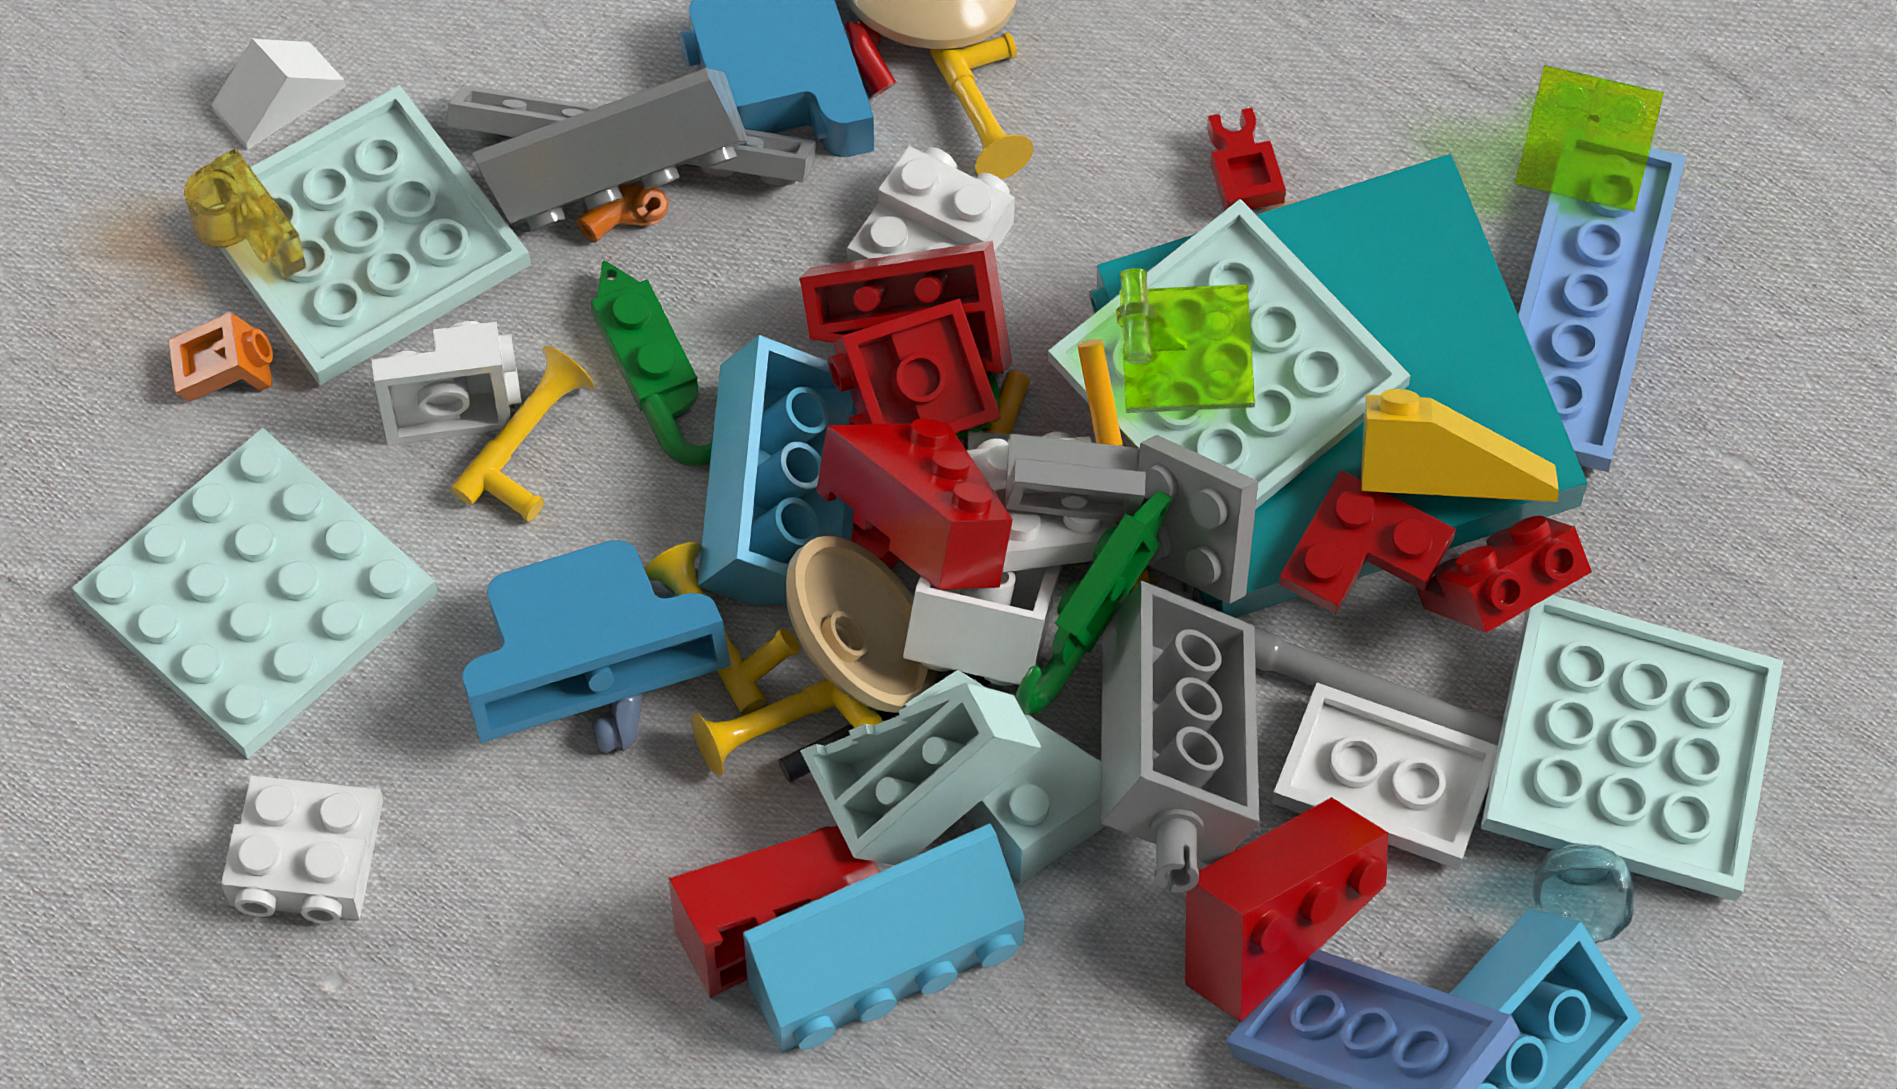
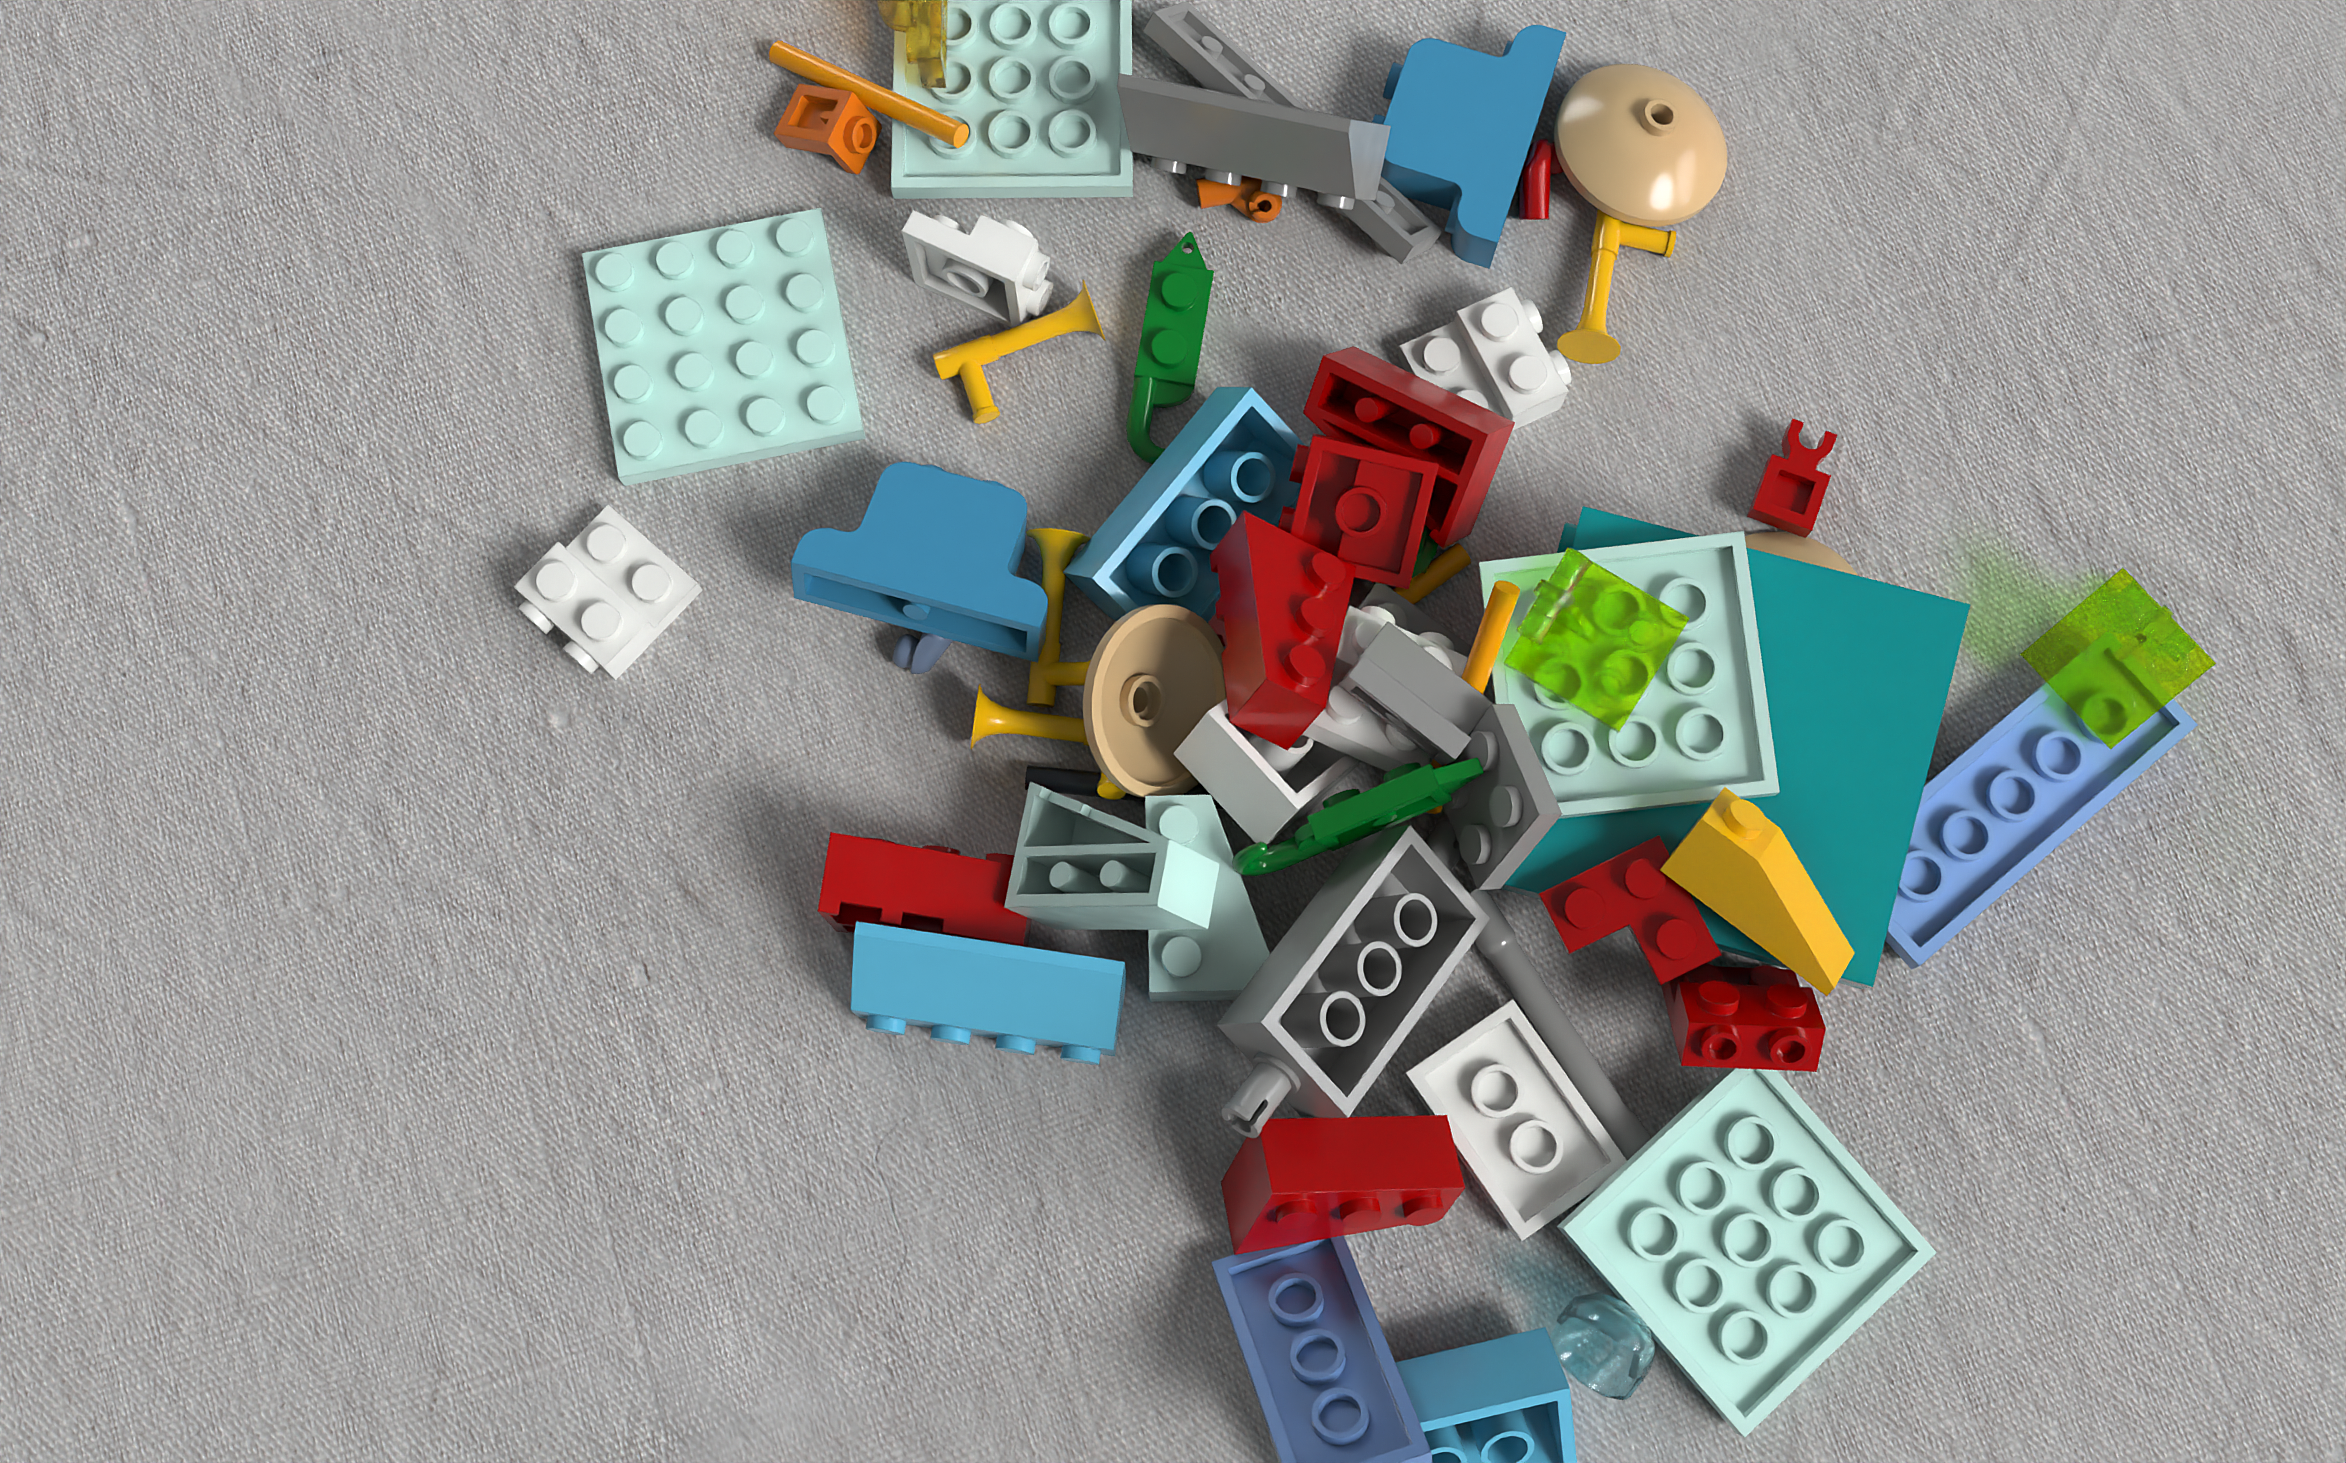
camera: 35 degrees right, 15 degrees up
(246, 307) = (870, 94): none -> light orange bar

